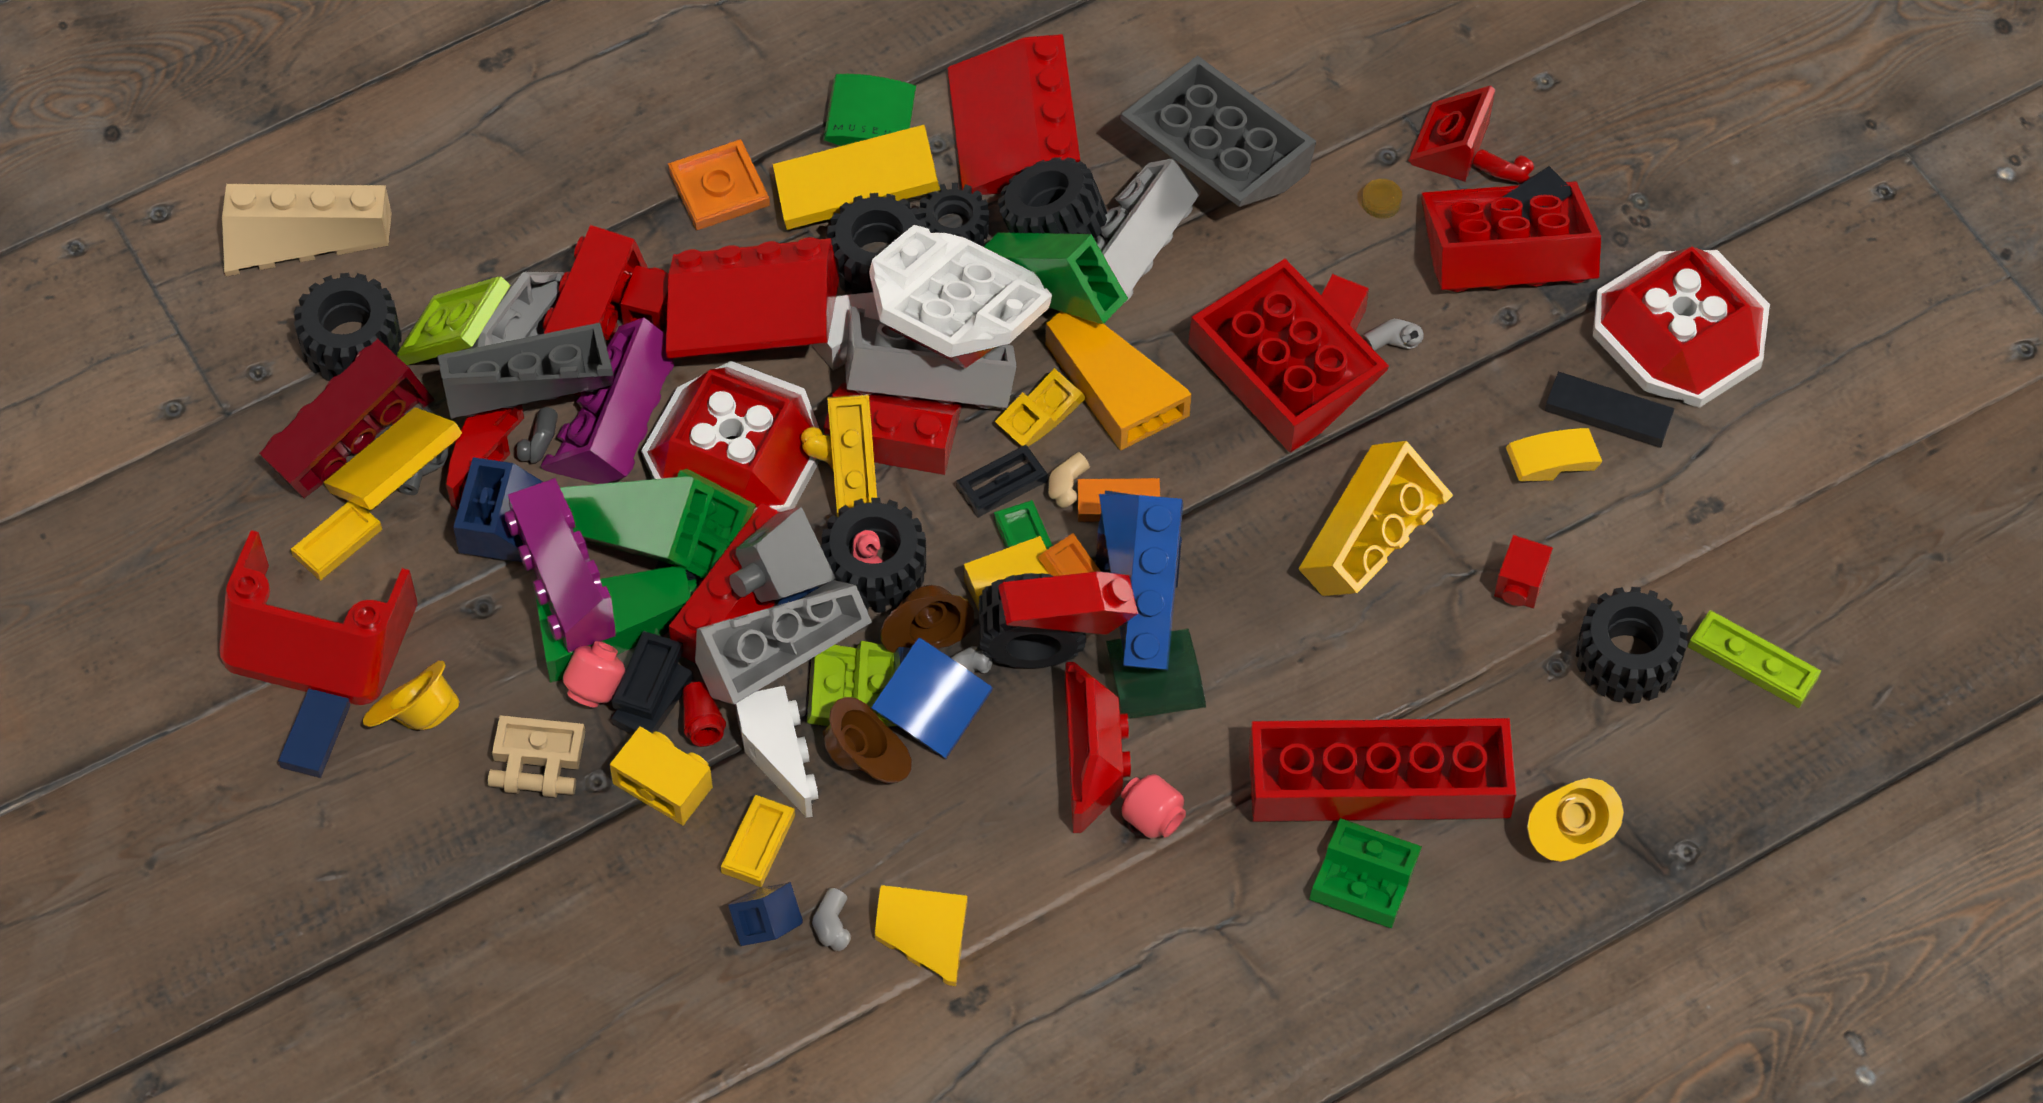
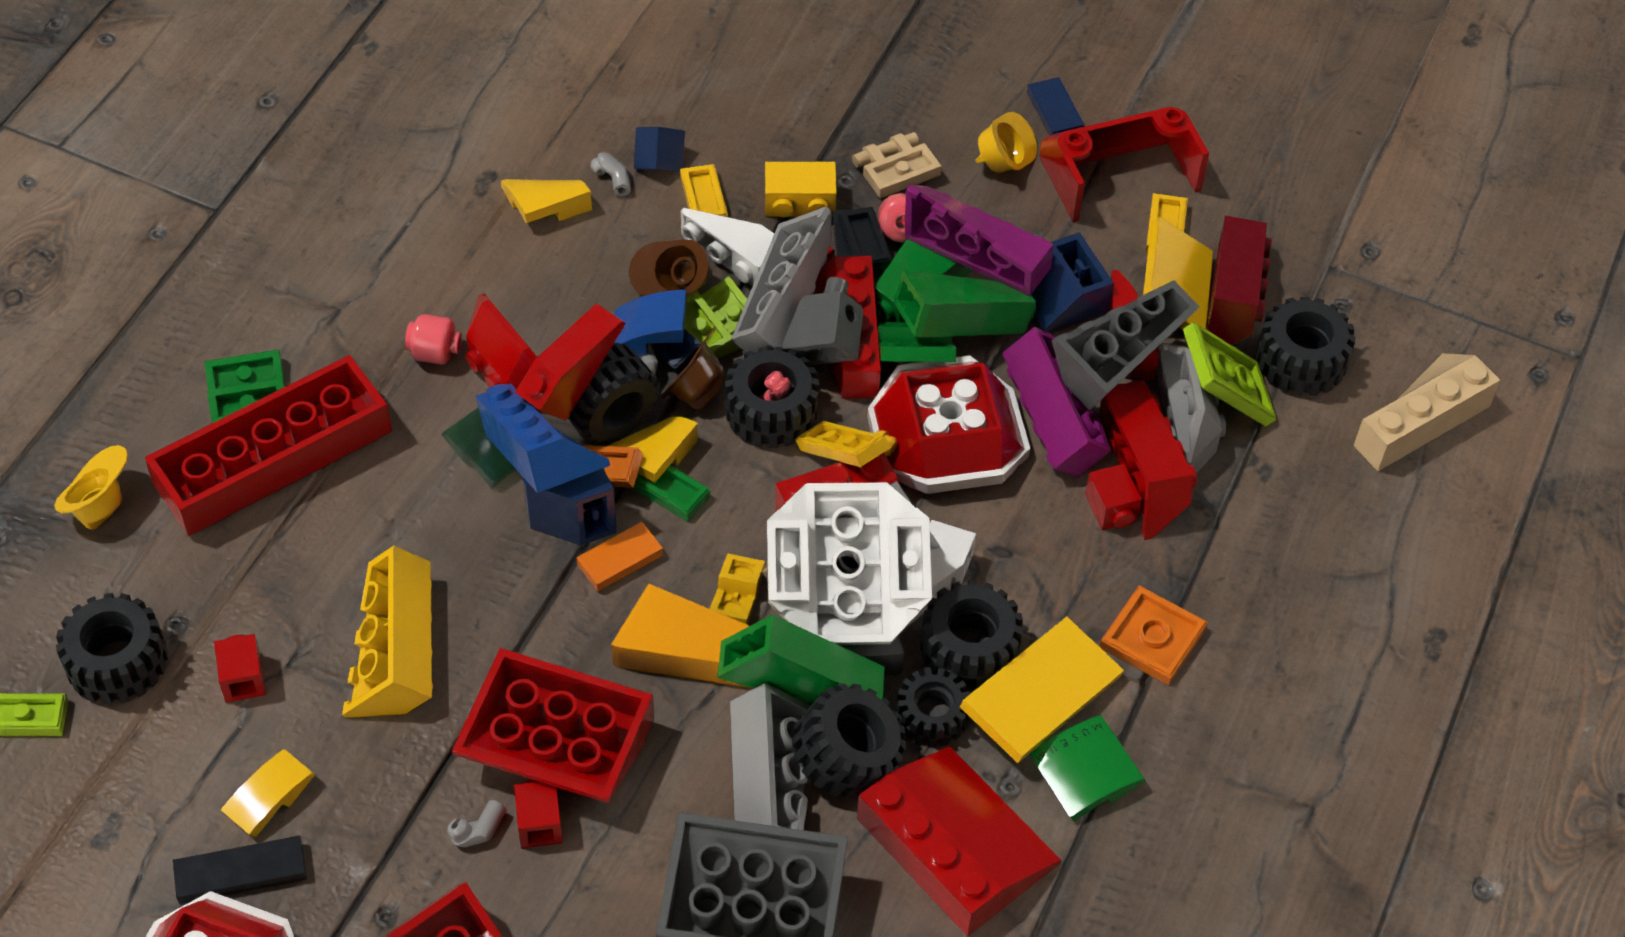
camera: 145 degrees right, 5 degrees down
(751, 297) = (1021, 508): red slope -> none
(1005, 486) = (712, 546): black tile -> none
(1062, 480) = (678, 547): tan arm -> none

